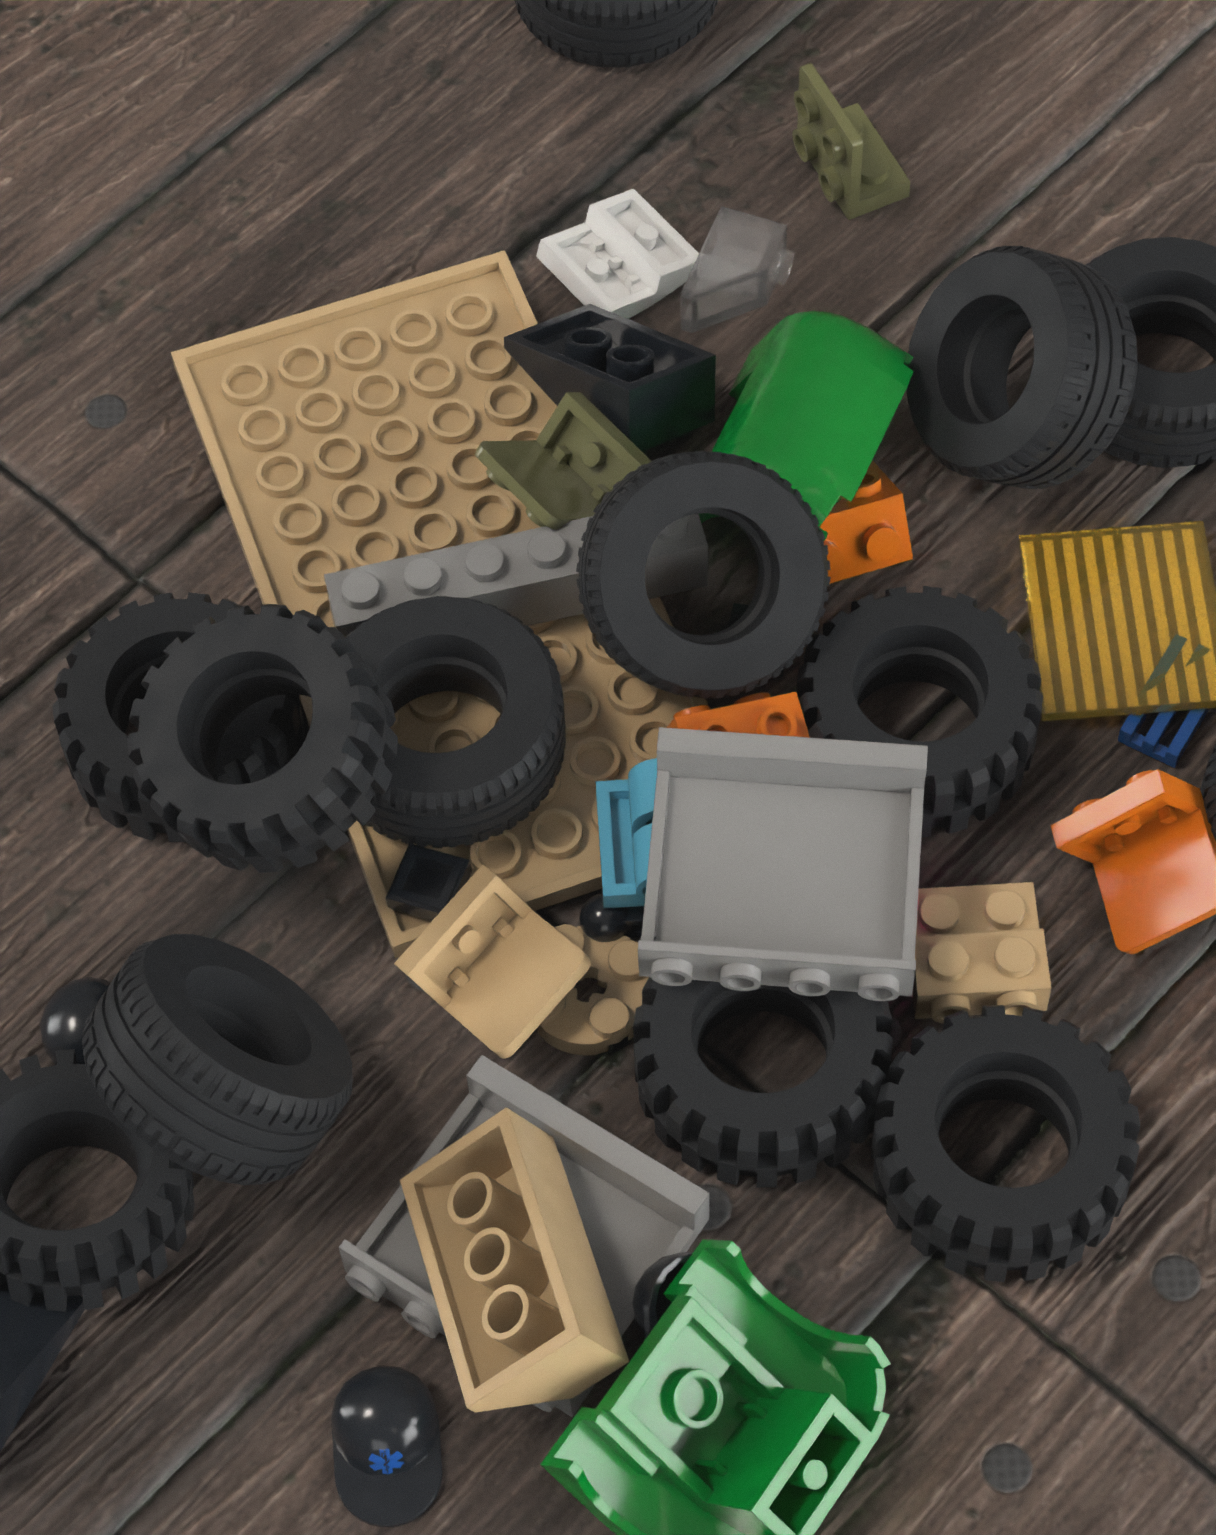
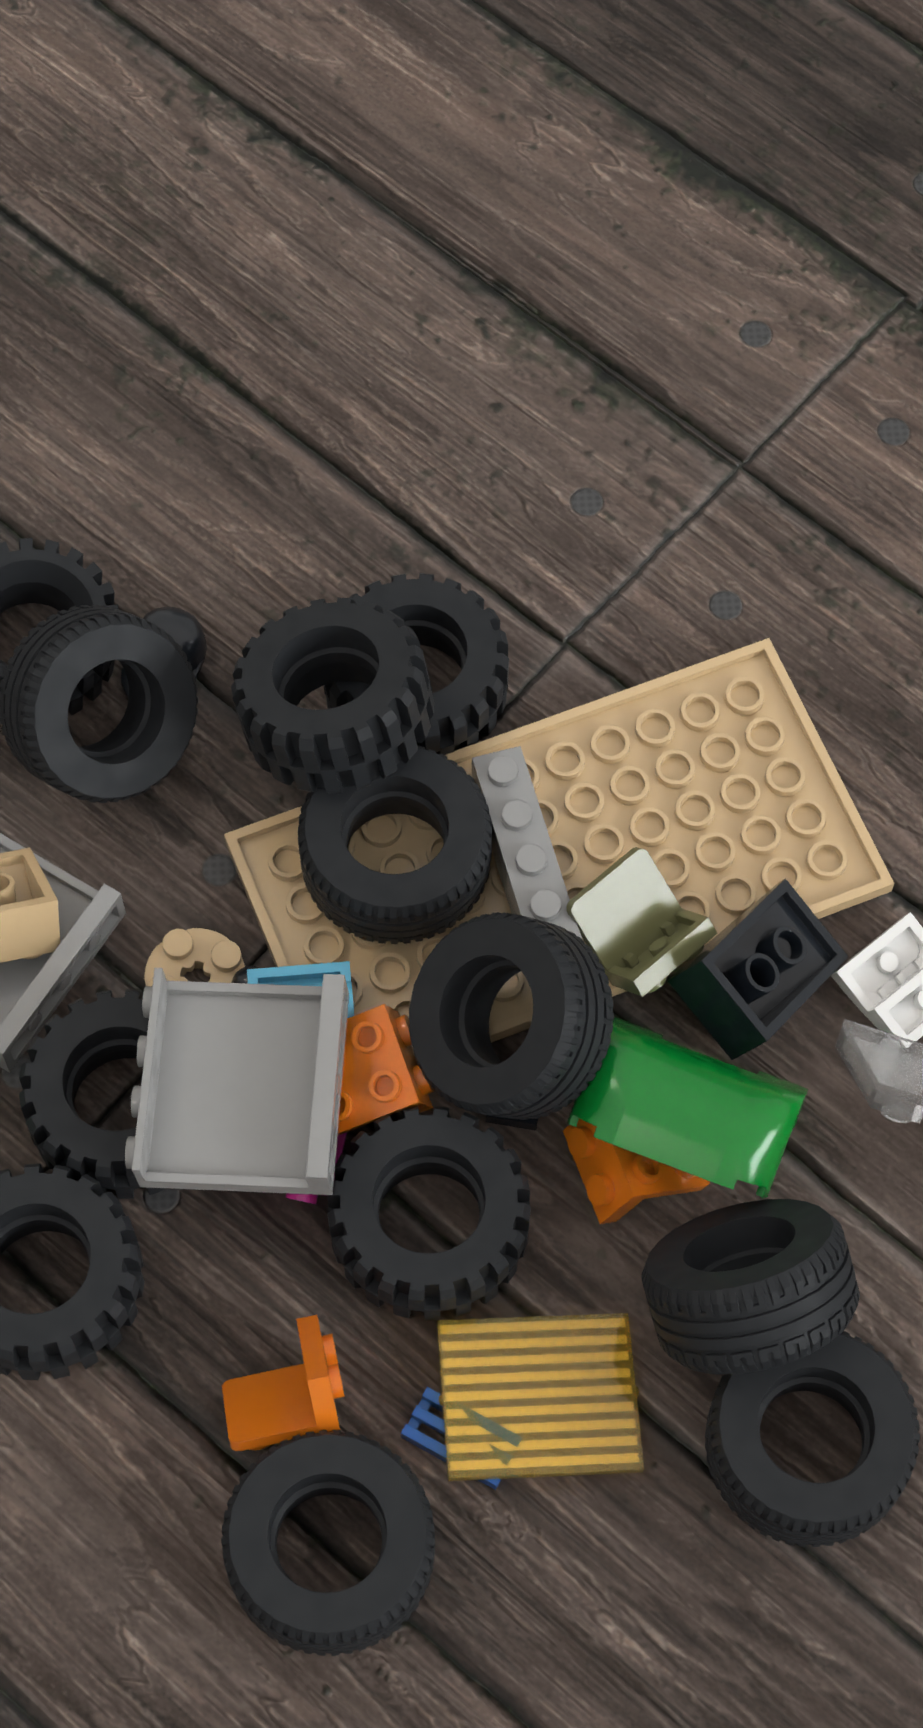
camera: 85 degrees right, 5 degrees up
(427, 881) = (271, 854): black tile -> none
(494, 963) = (202, 906): tan bracket -> none
(979, 951) = (221, 1265): tan plate -> none

